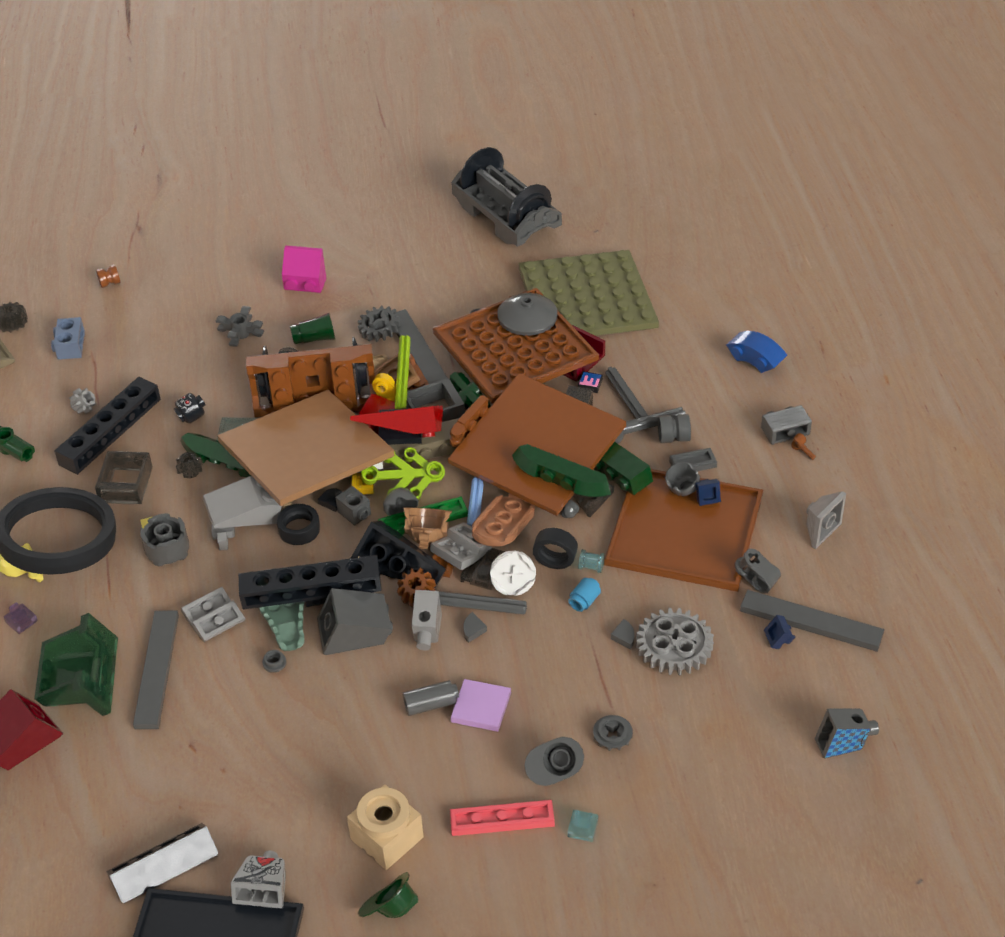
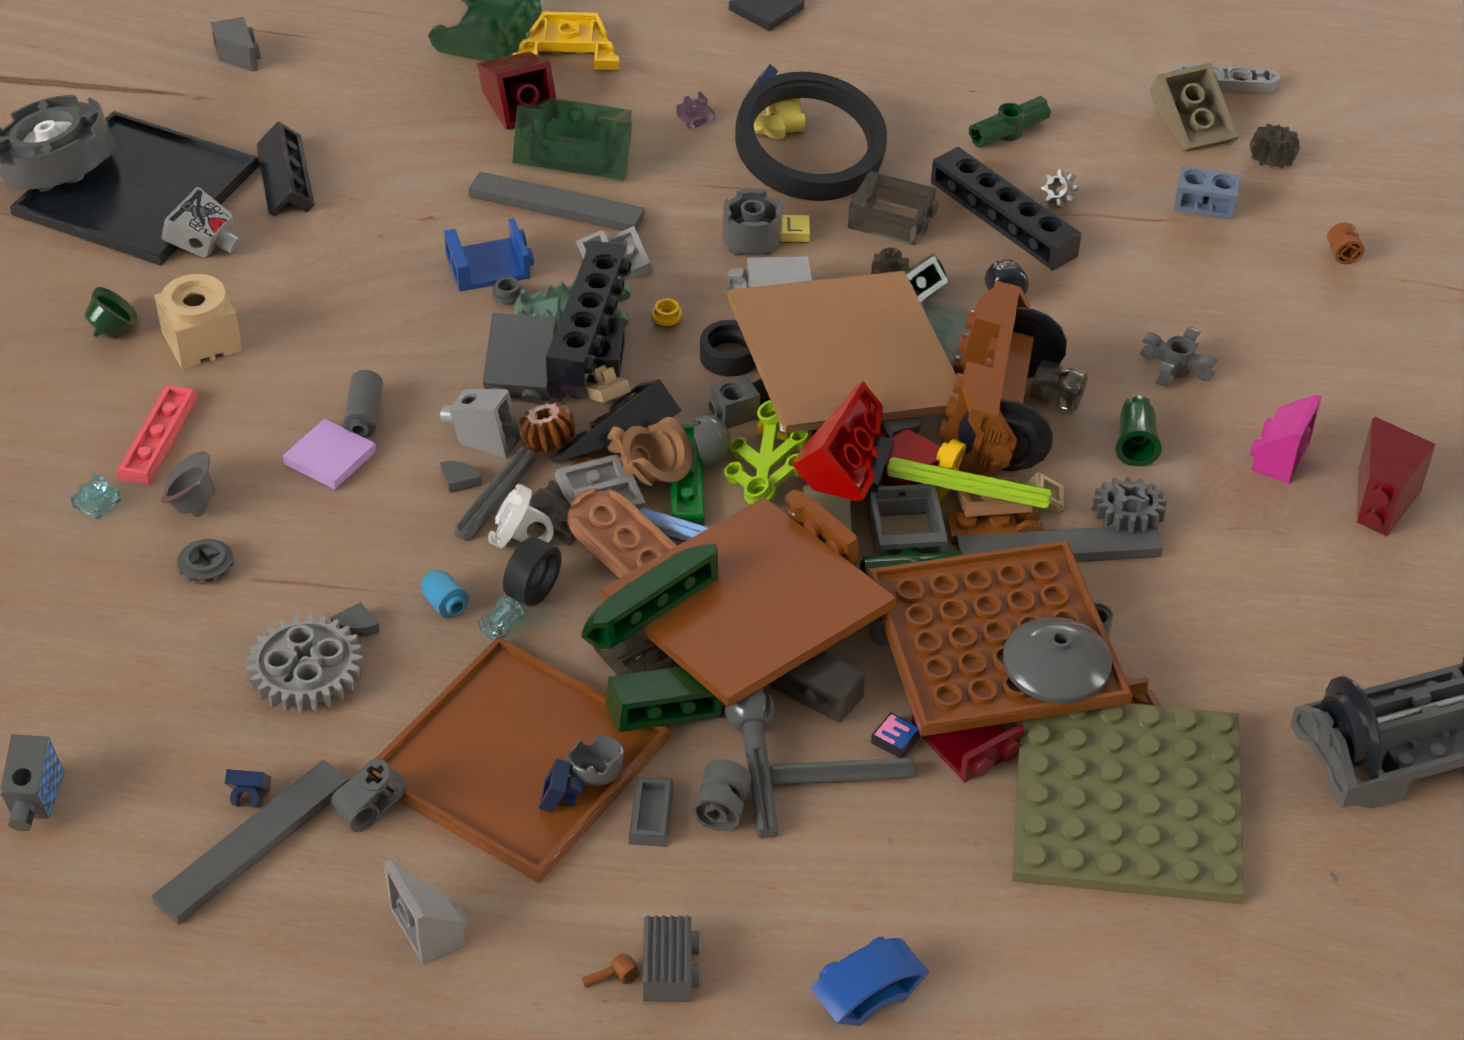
camera: 105 degrees right, 0 degrees up
(238, 684) = (487, 262): none -> blue panel
(270, 563) = (666, 312): none -> yellow plate
(326, 229) = (1390, 474): none -> dark red slope

